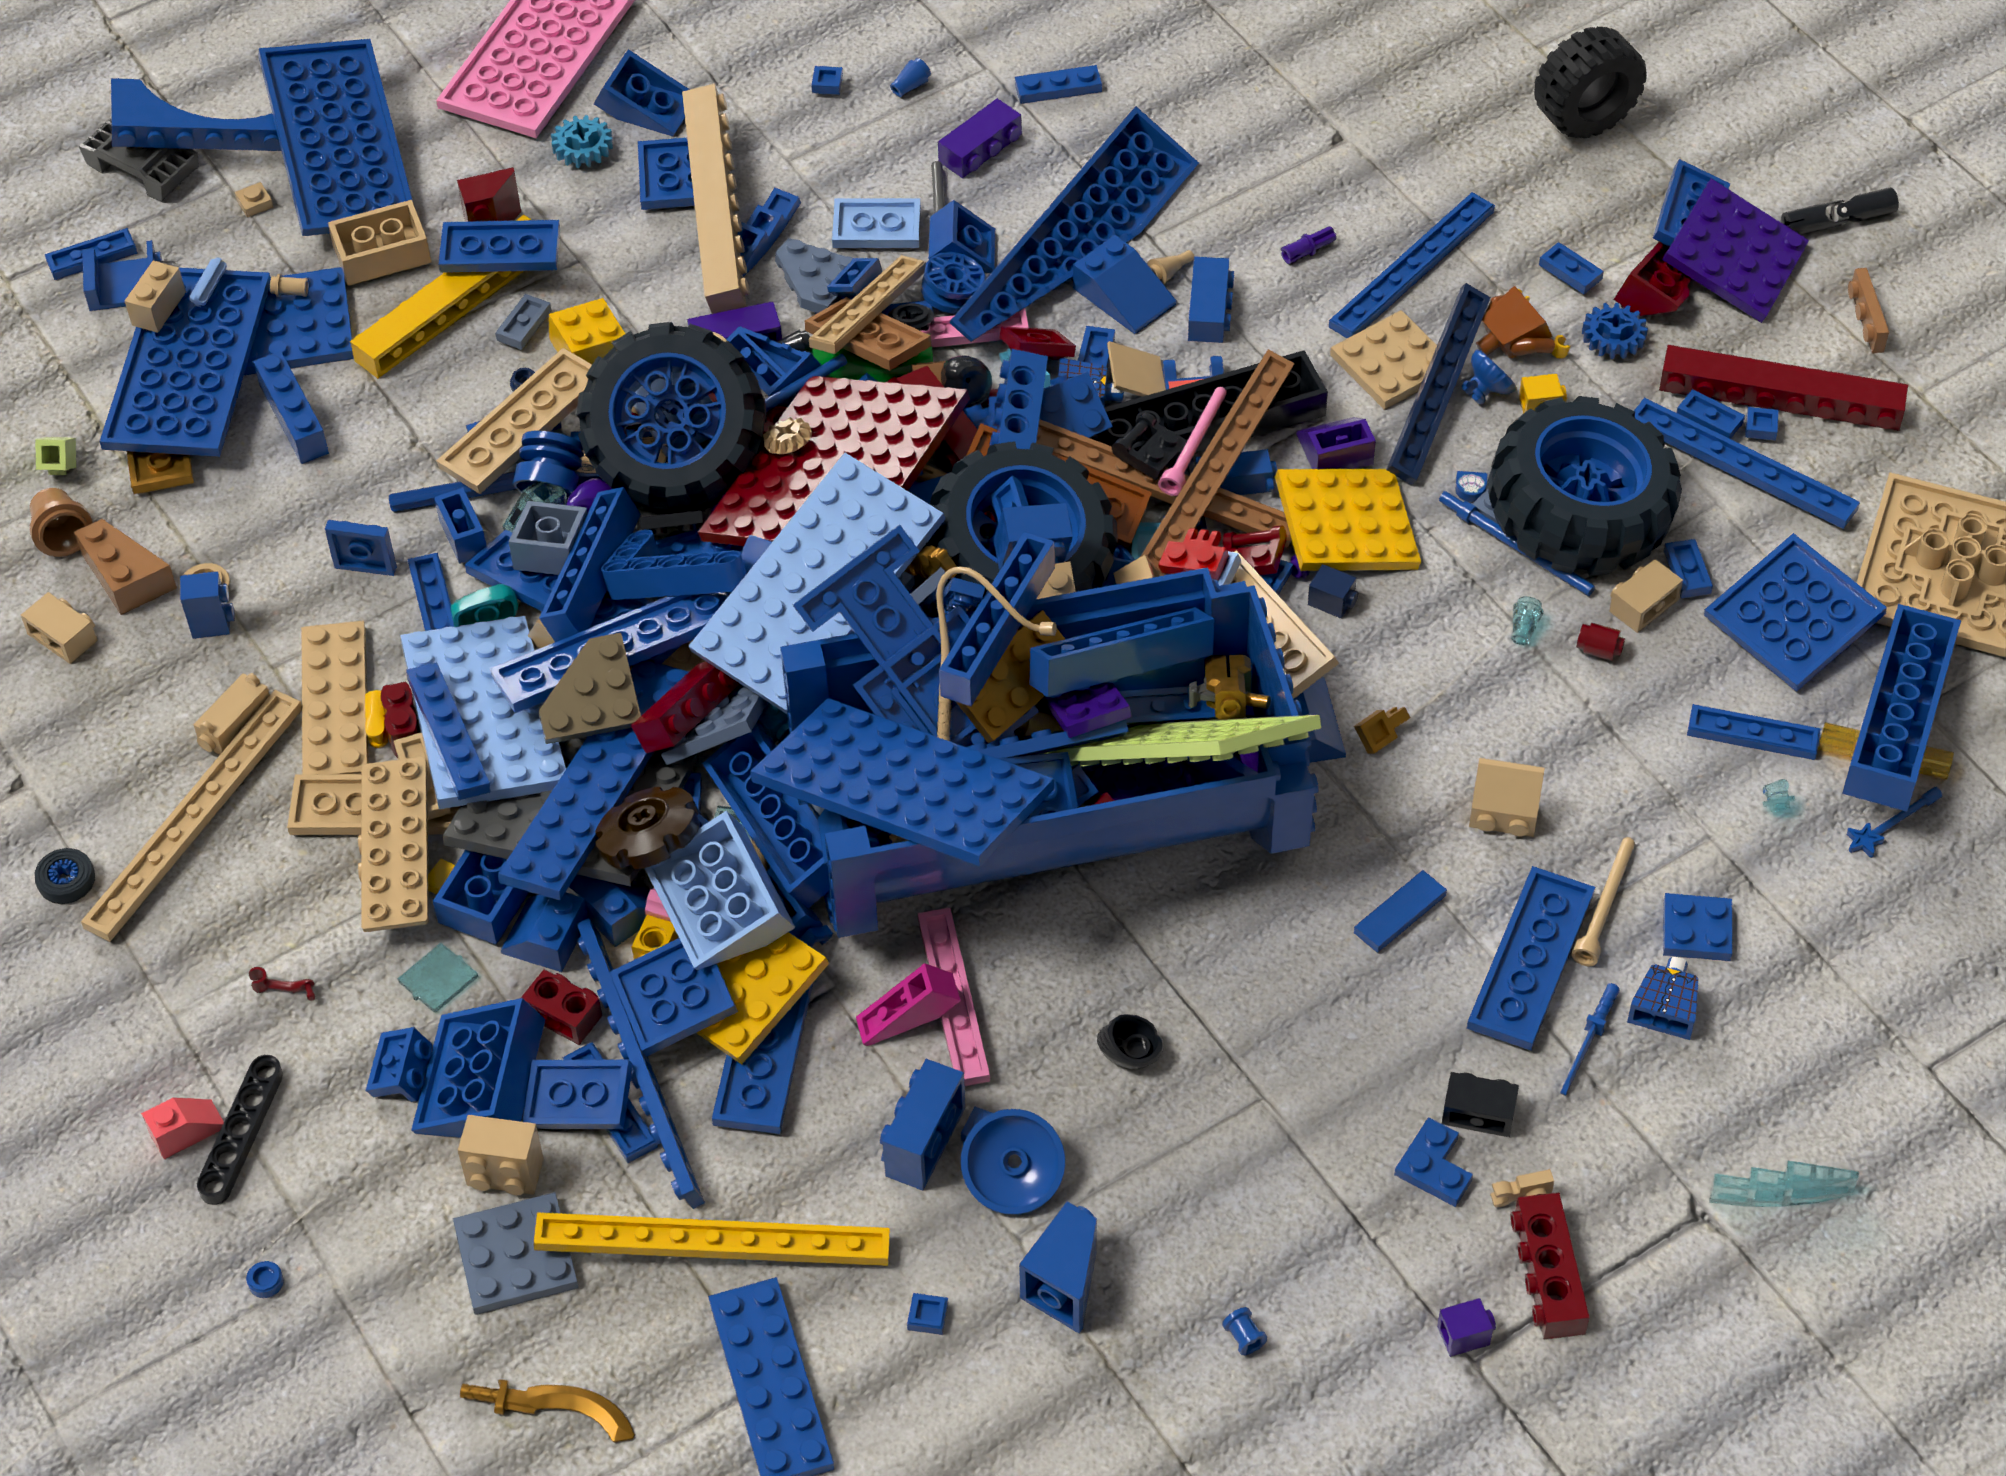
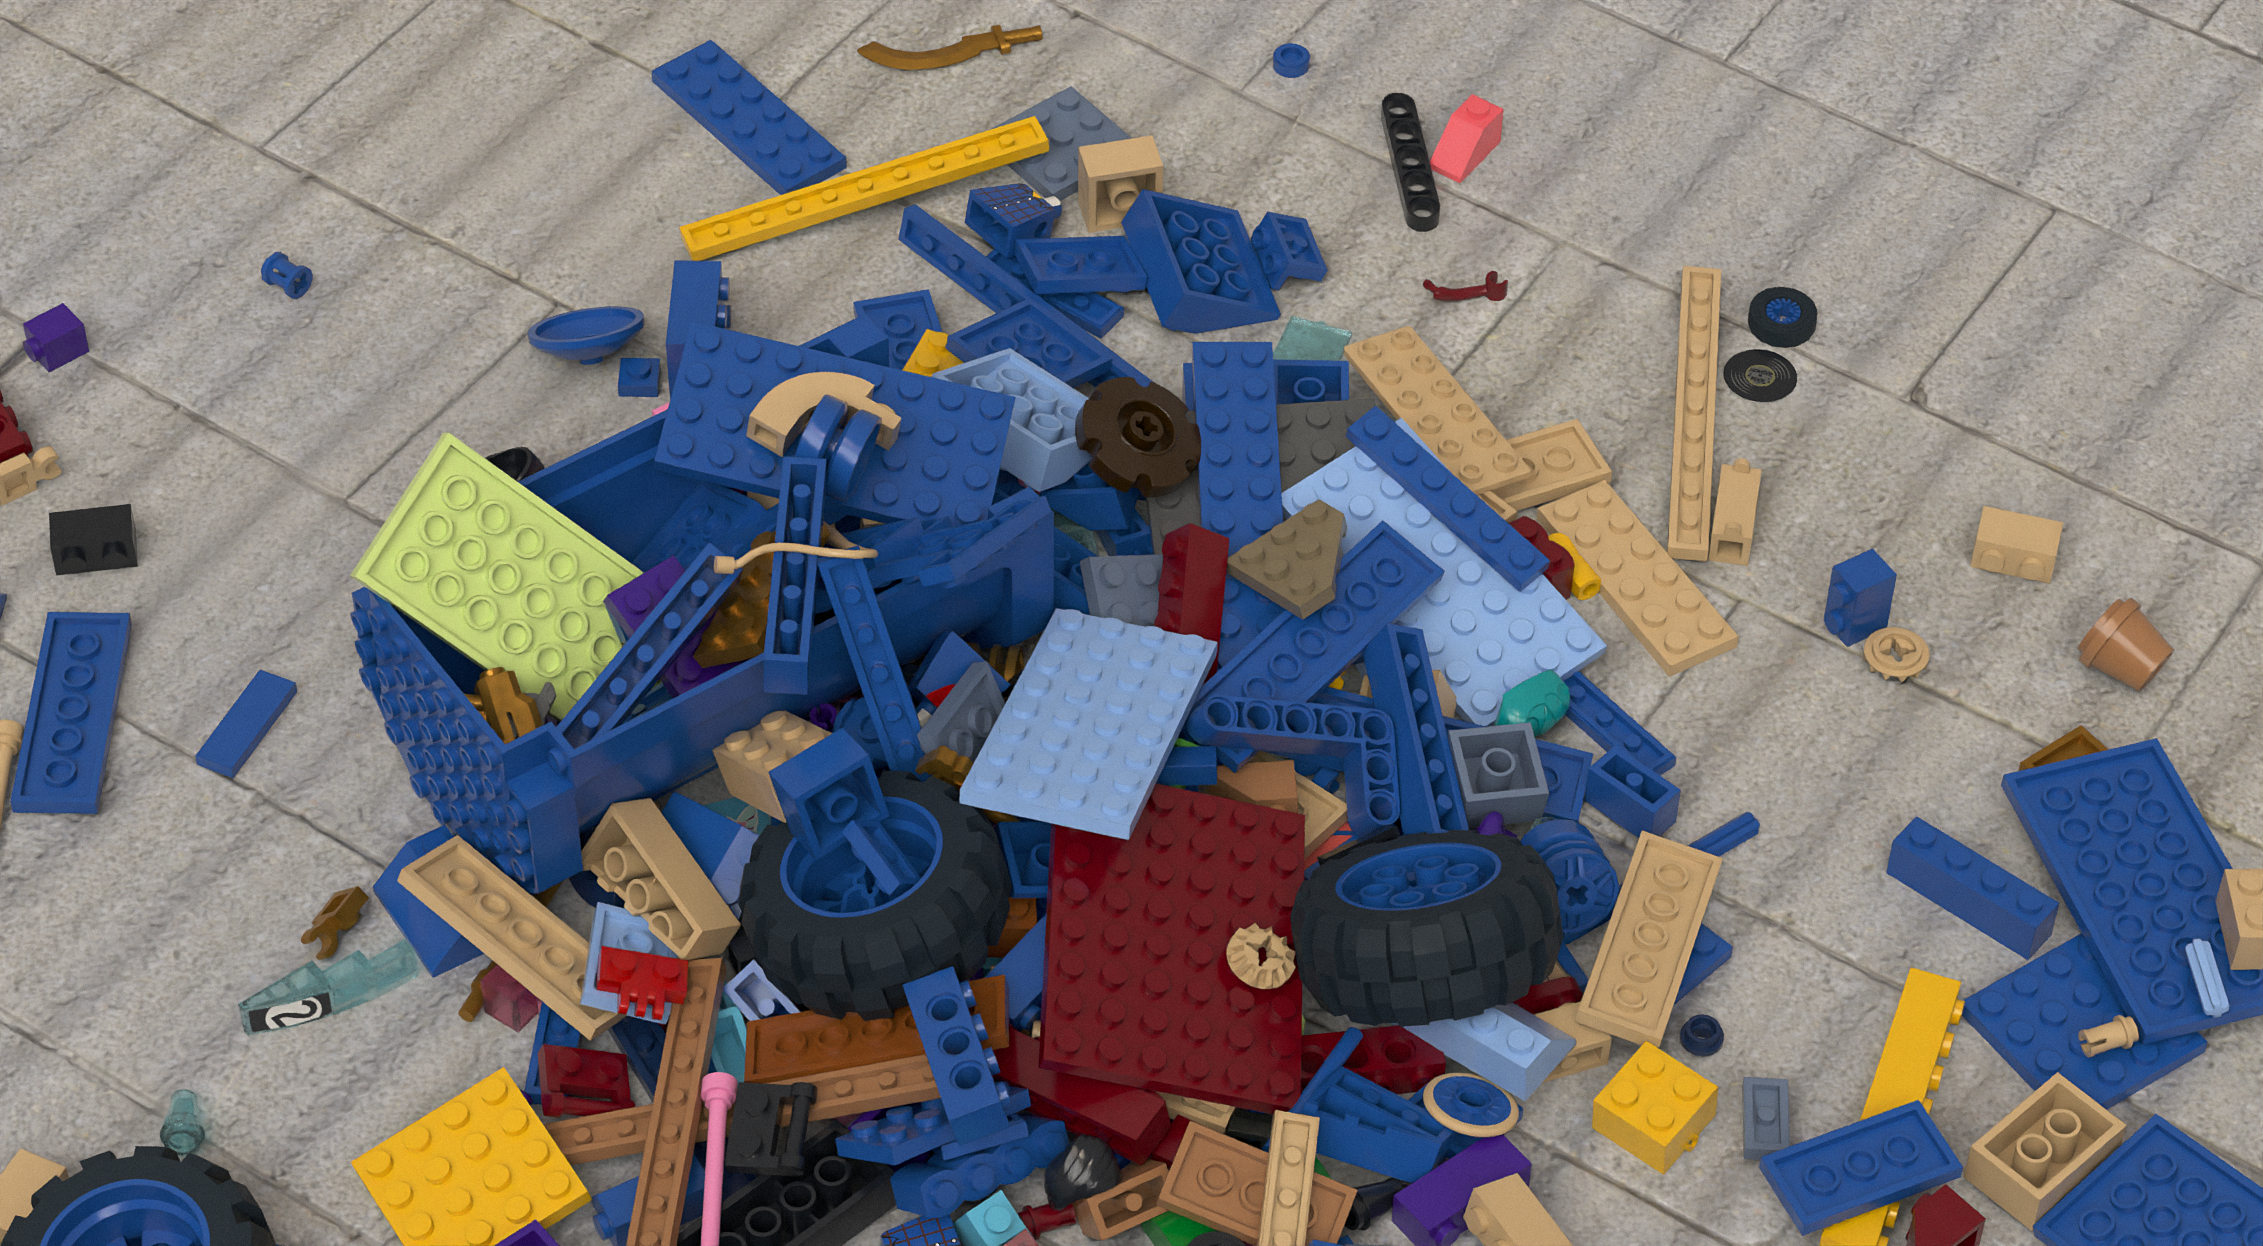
camera: 155 degrees right, 5 degrees down
(55, 454) = (2206, 728): yellowish green brick -> none
(117, 840) = (1760, 375): none -> black sticker
(123, 566) = (2009, 628): medium nougat wedge -> none
(360, 547) = (1730, 720): blue plate -> none
(566, 1000) = (1154, 342): dark red brick -> none
(604, 1162) = (1010, 214): none -> blue torso
(918, 765) = (789, 407): none -> tan arch
(919, 714) = (844, 449): none -> blue wheel
(927, 1313) = (620, 212): blue tile -> none
(1061, 1267) = (493, 250): blue slope -> none
(1332, 591) = (453, 1071): dark blue brick -> none
(1410, 675) = (317, 994): none -> clear light blue slope
(1426, 1164) = (137, 478): blue plate -> none
(1506, 797) = (146, 866): tan slope -> none
(1600, 641) = (71, 1119): dark red brick -> none

